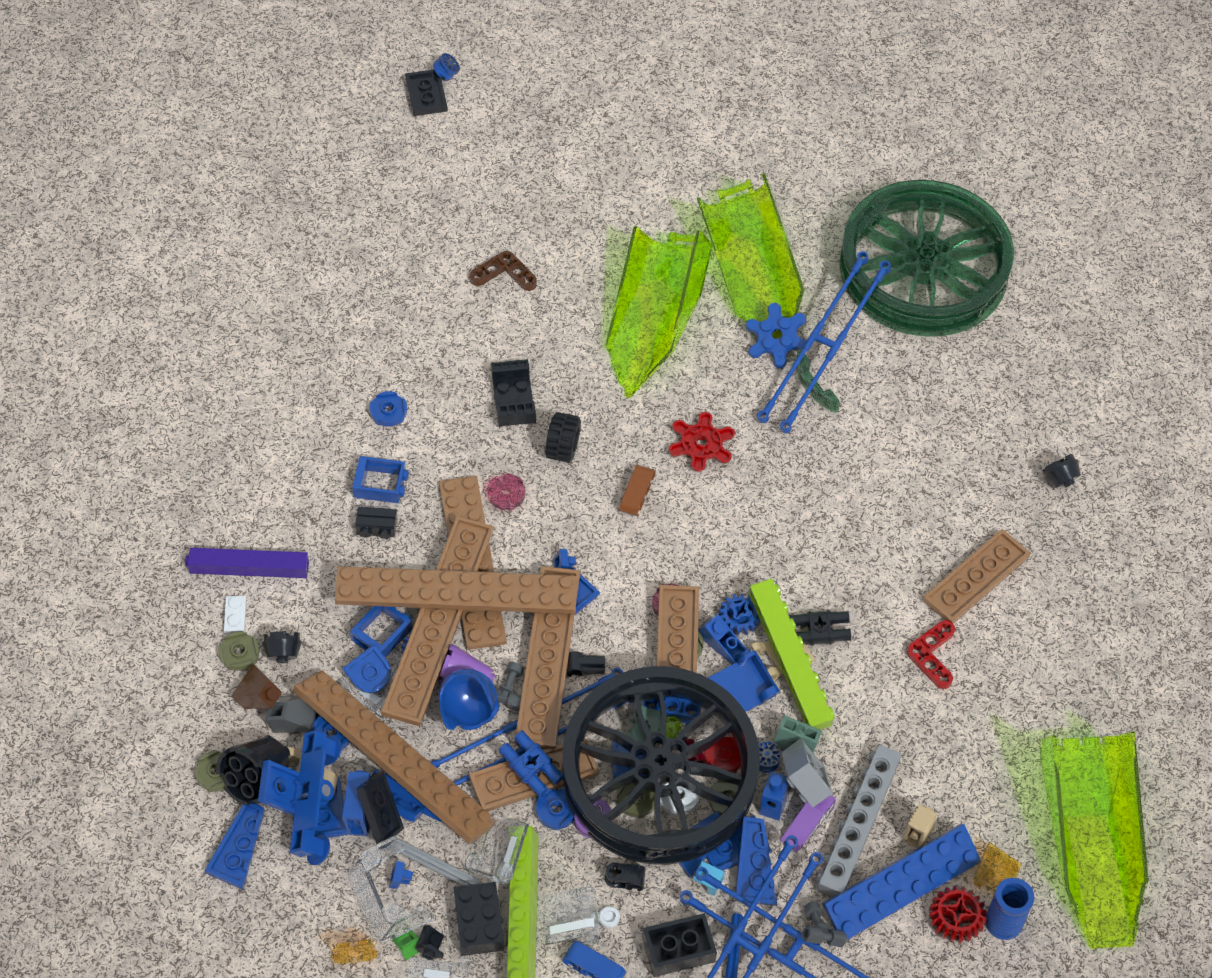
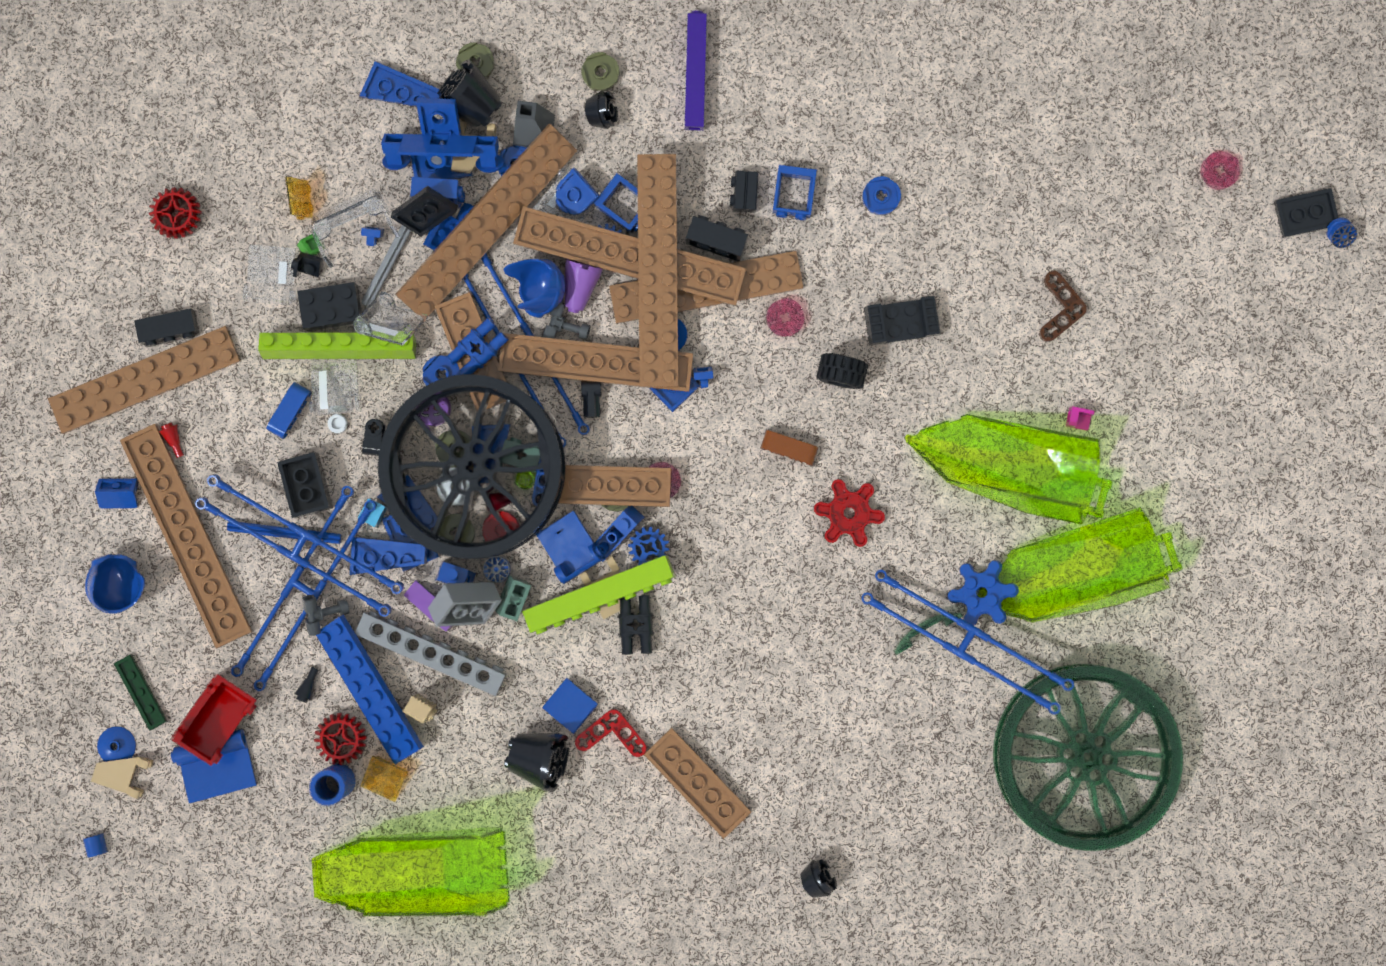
camera: 90 degrees right, 30 degrees up
(235, 614) = (641, 64): white plate -> none
(256, 690) = (553, 91): reddish brown slope -> none
(378, 144) = (1229, 164): none -> clear pink plate
(424, 539) = (716, 238): none -> black brick
(608, 261) = (1079, 418): none -> dark pink panel
(906, 689) = (570, 705): none -> blue slope
(907, 951) = (305, 690): none -> black cone
(964, 712) = (538, 758): none -> black cone

